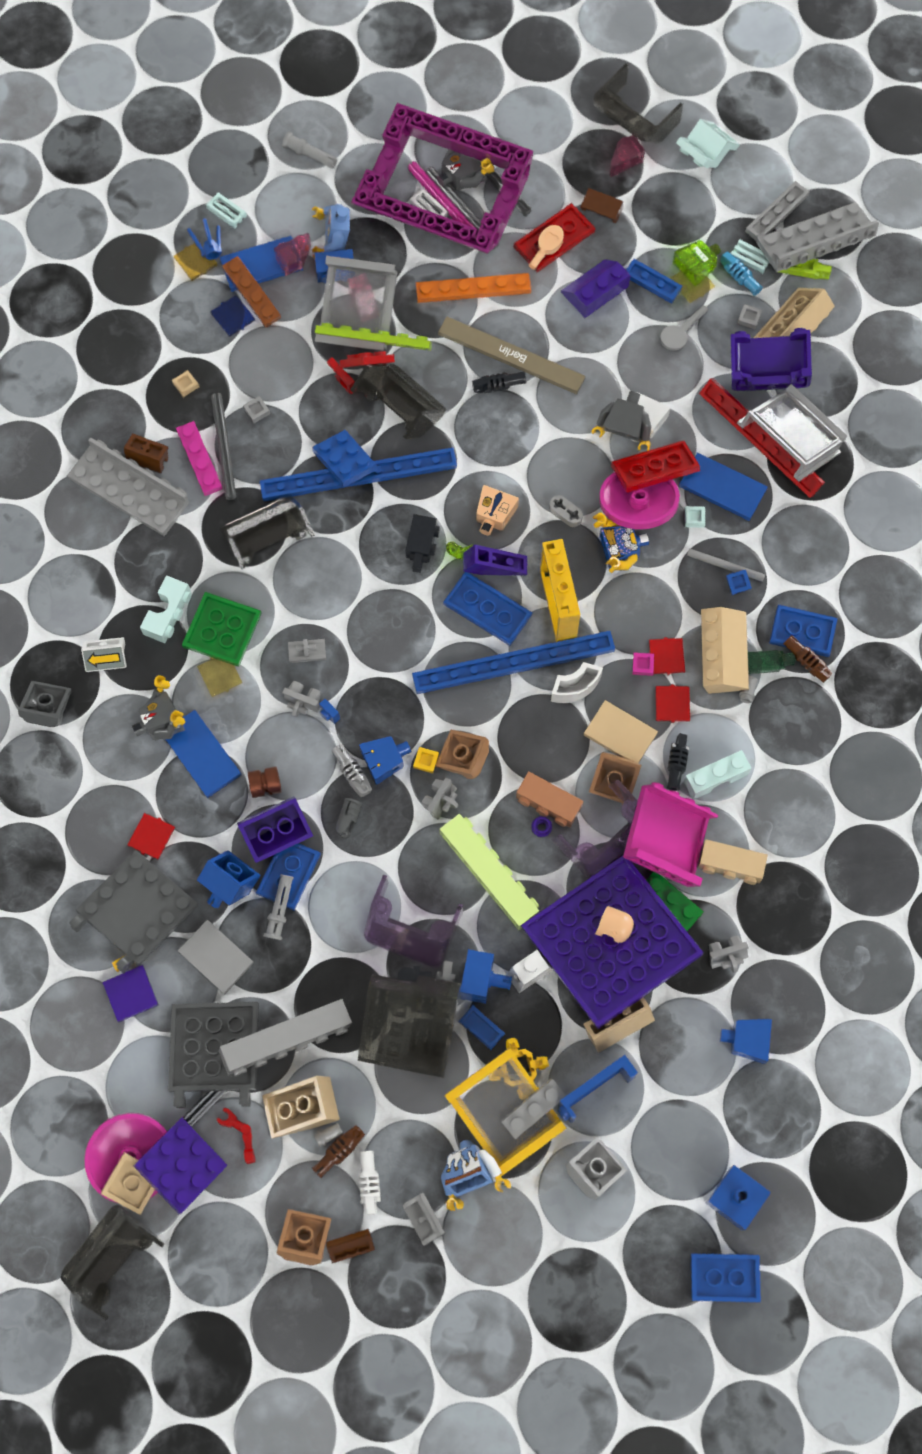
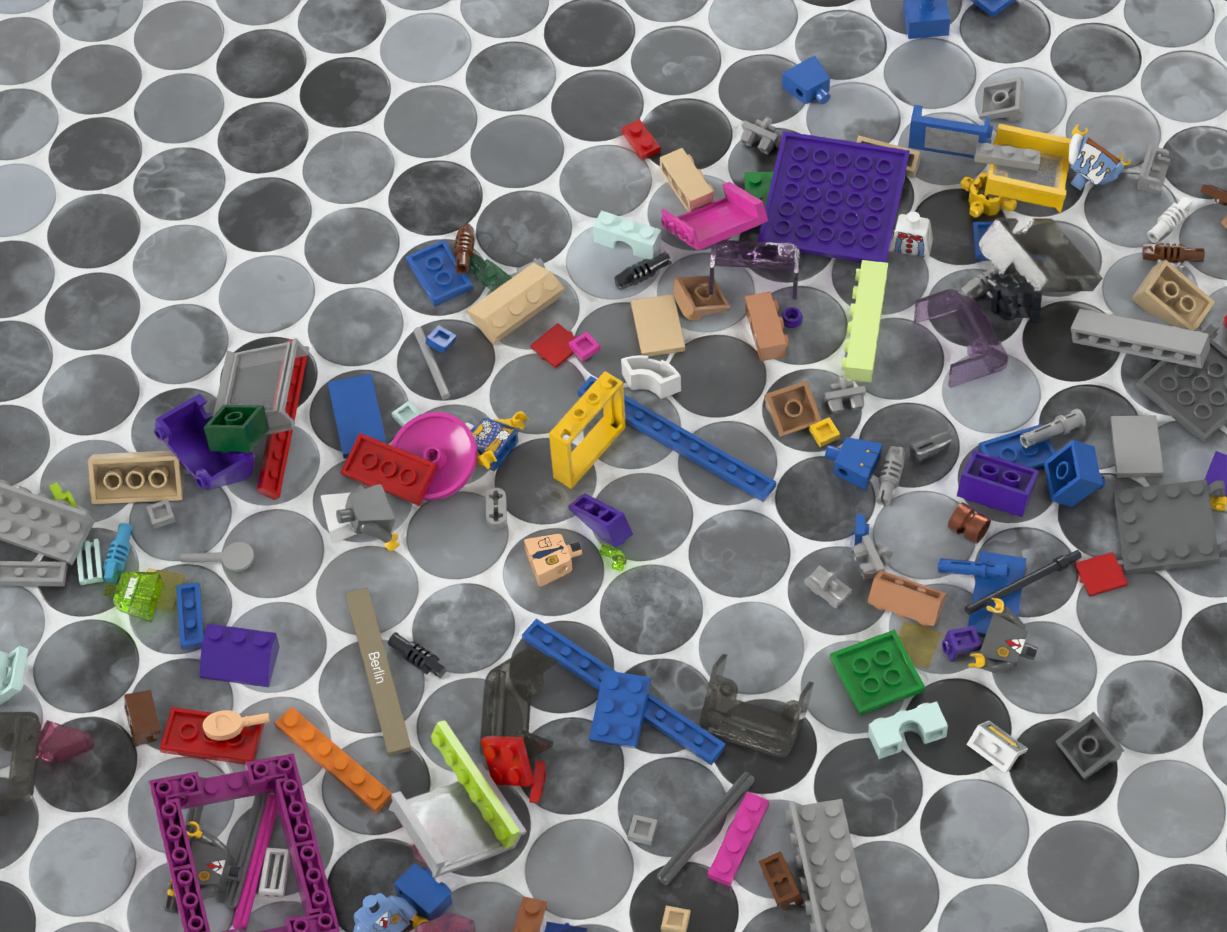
camera: 130 degrees left, 15 degrees down
(182, 814) = (1058, 564): none -> black bar
(188, 695) = (961, 641): none -> dark purple bracket
(221, 756) = (984, 569): none -> blue pin
(249, 689) = (906, 598): none -> nougat brick
(421, 540) = (637, 588): black hinge -> none
(479, 977) = (954, 258): blue brick -> none
(487, 608) = (646, 497): blue tile -> none
(615, 924) = (822, 186): light nougat helmet -> none
(672, 703) = (594, 312): red piece -> none
(762, 380) = (236, 428): none -> dark green brick
(806, 868) = (641, 139): none -> red plate

